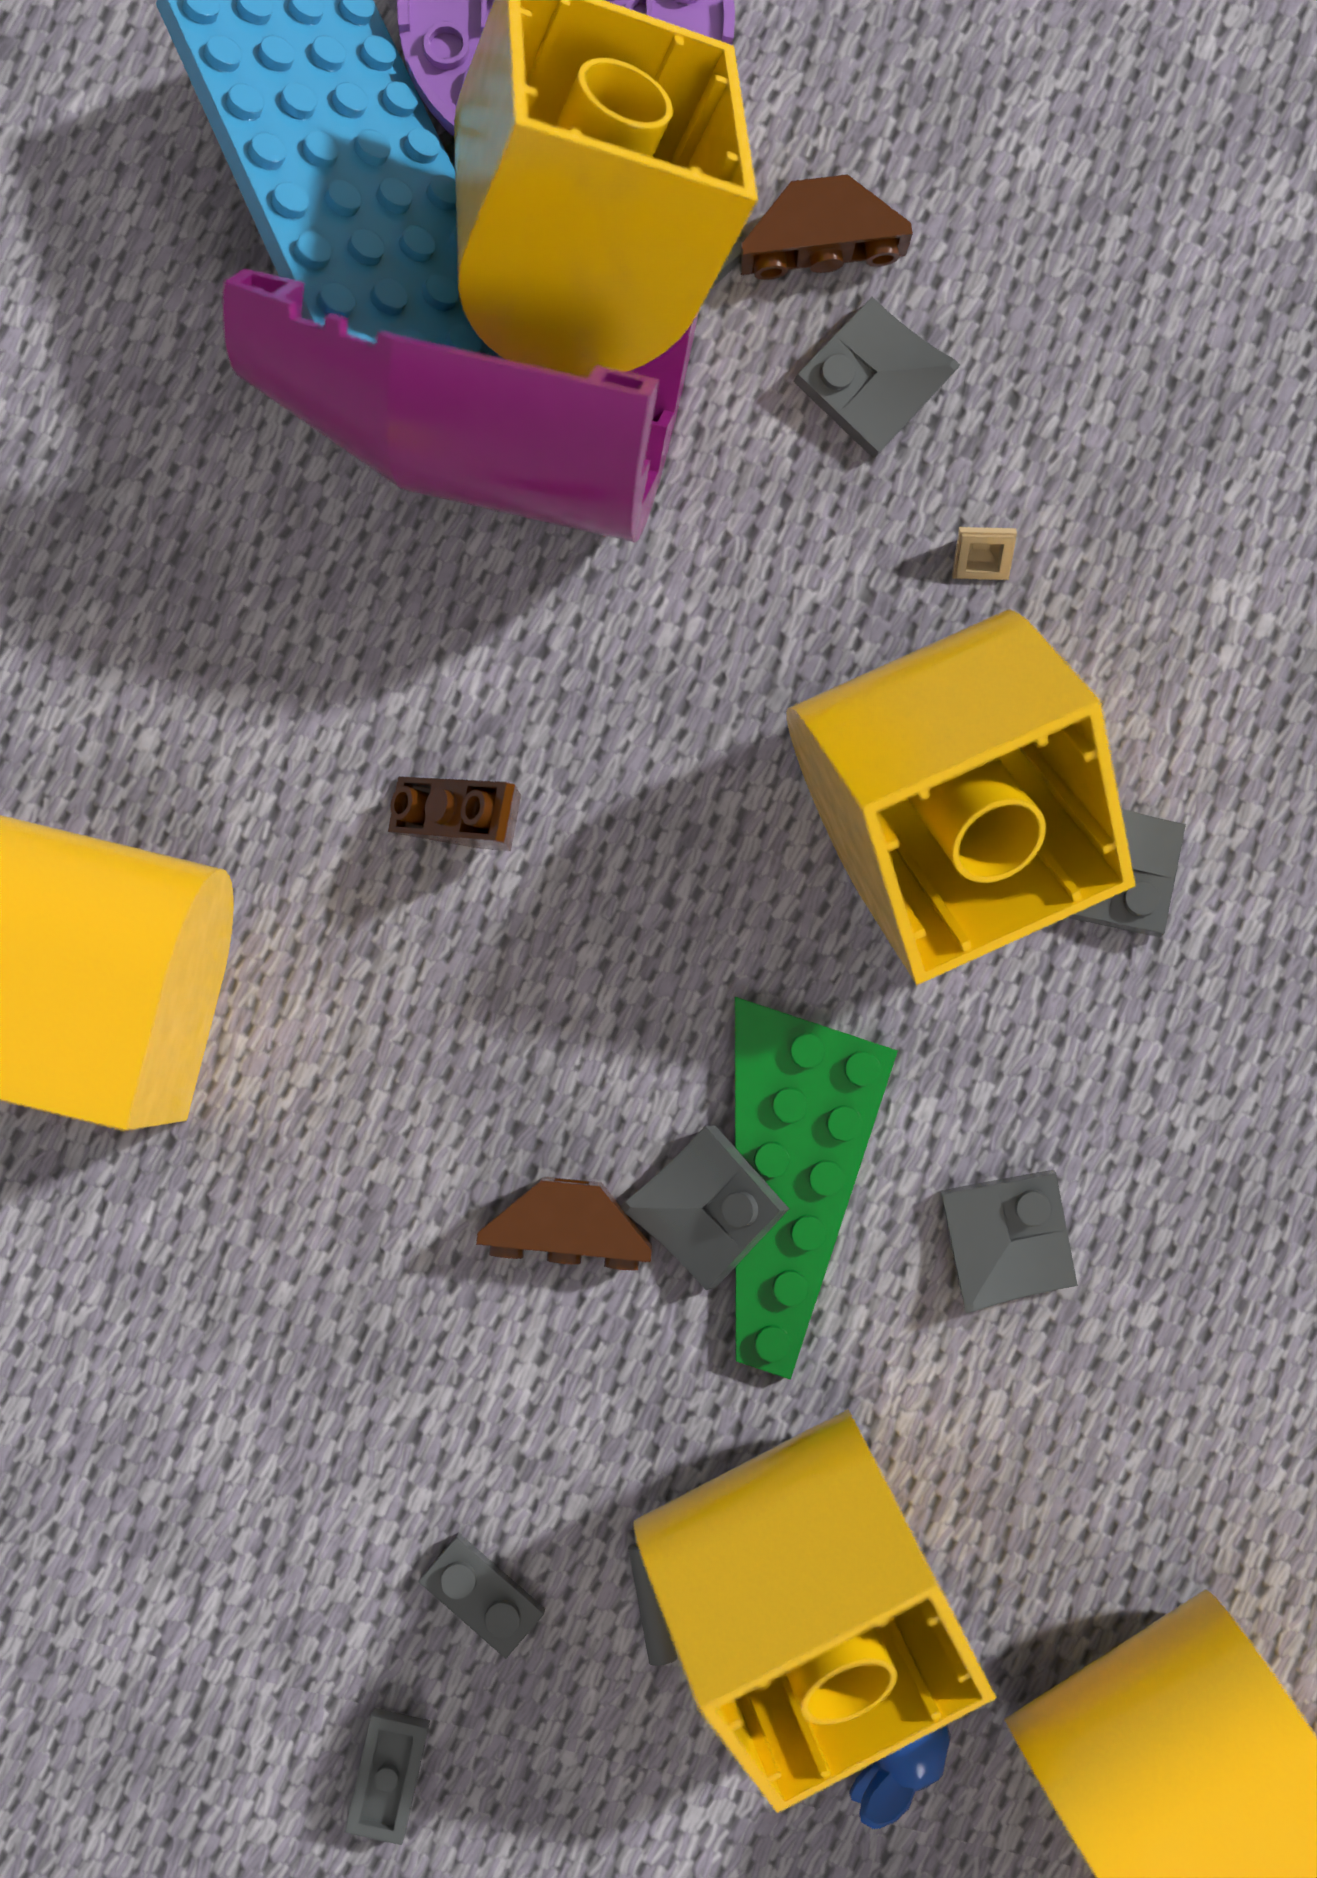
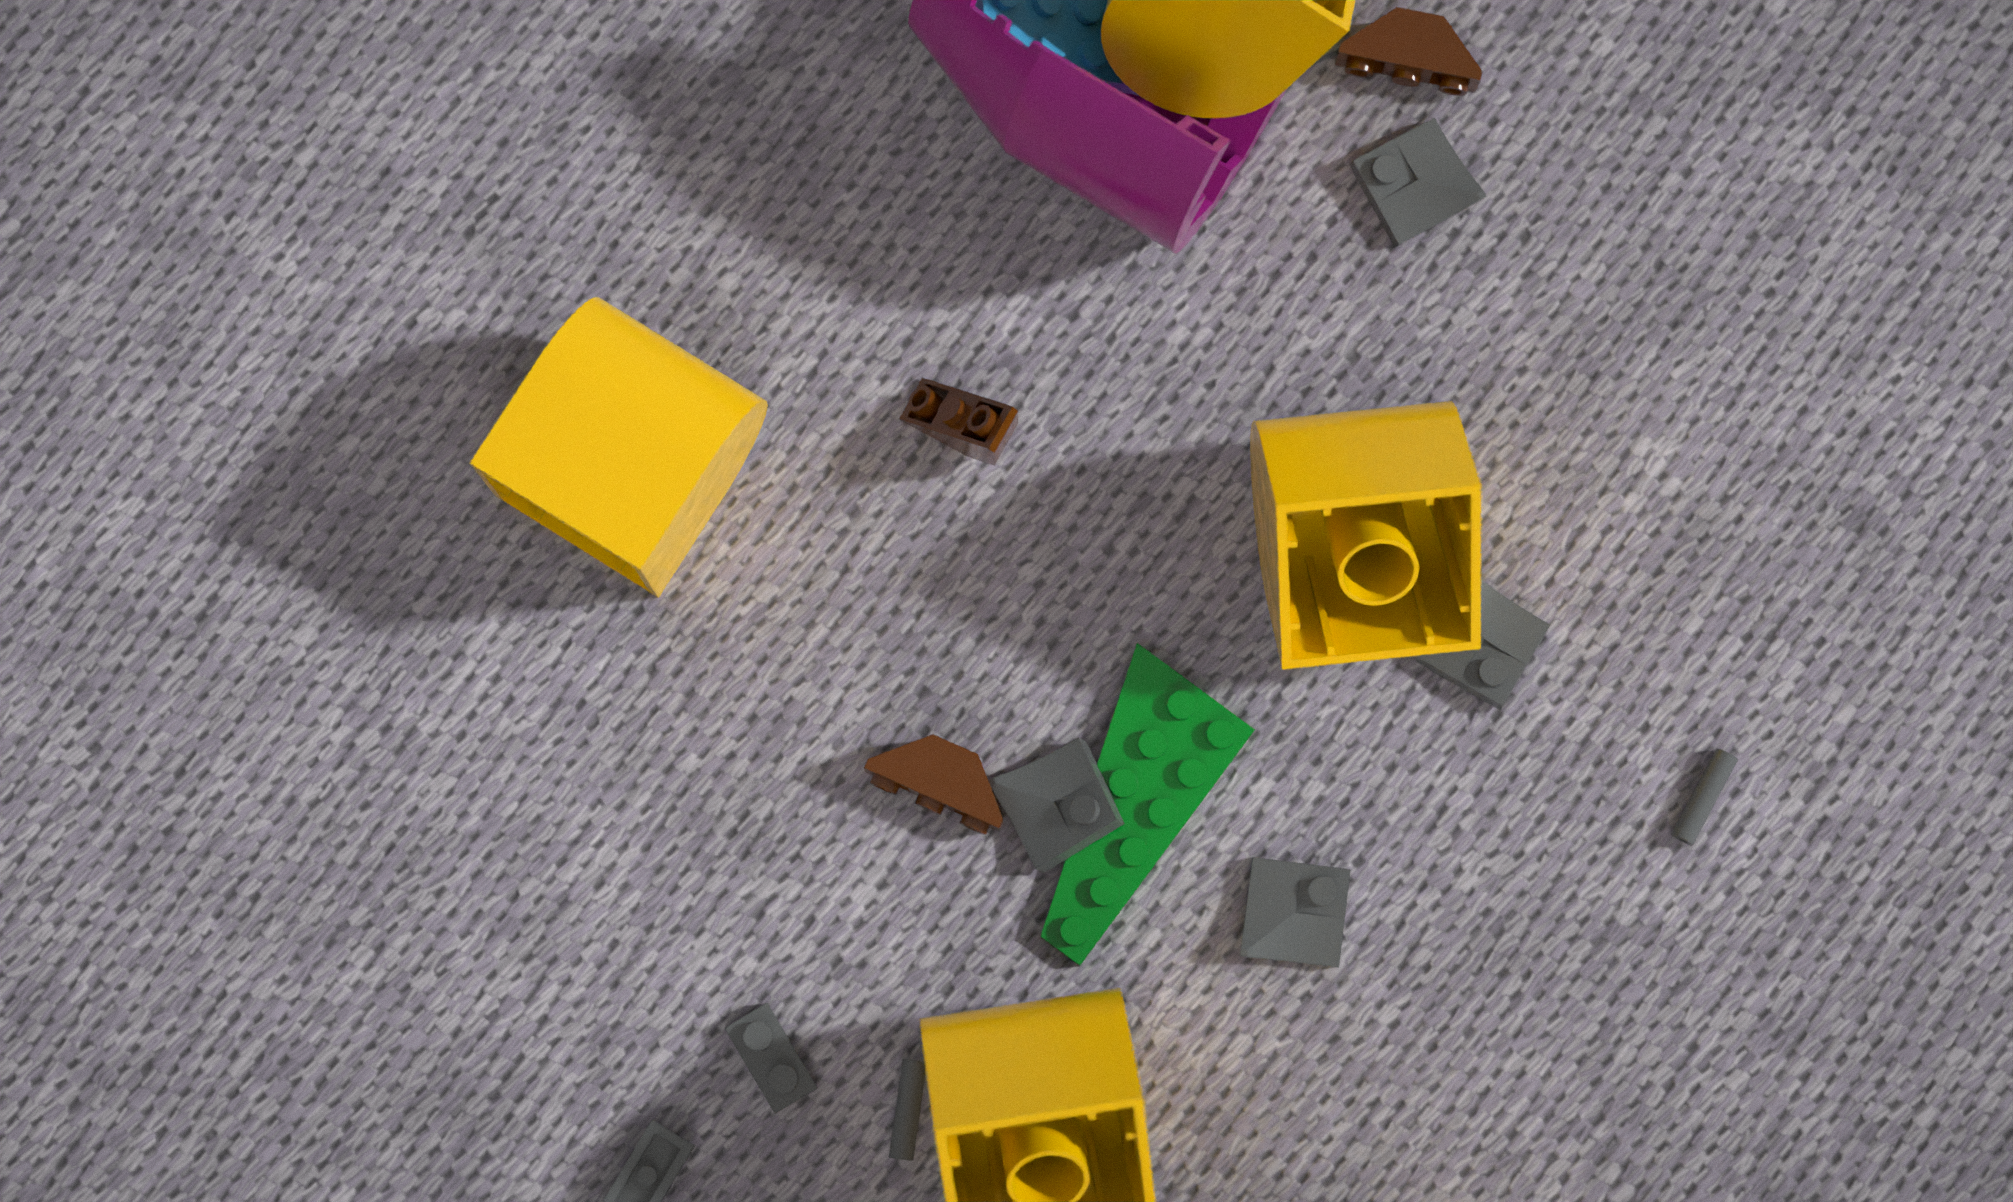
camera: 15 degrees right, 5 degrees down
(984, 553) = (1457, 353): tan slope -> none

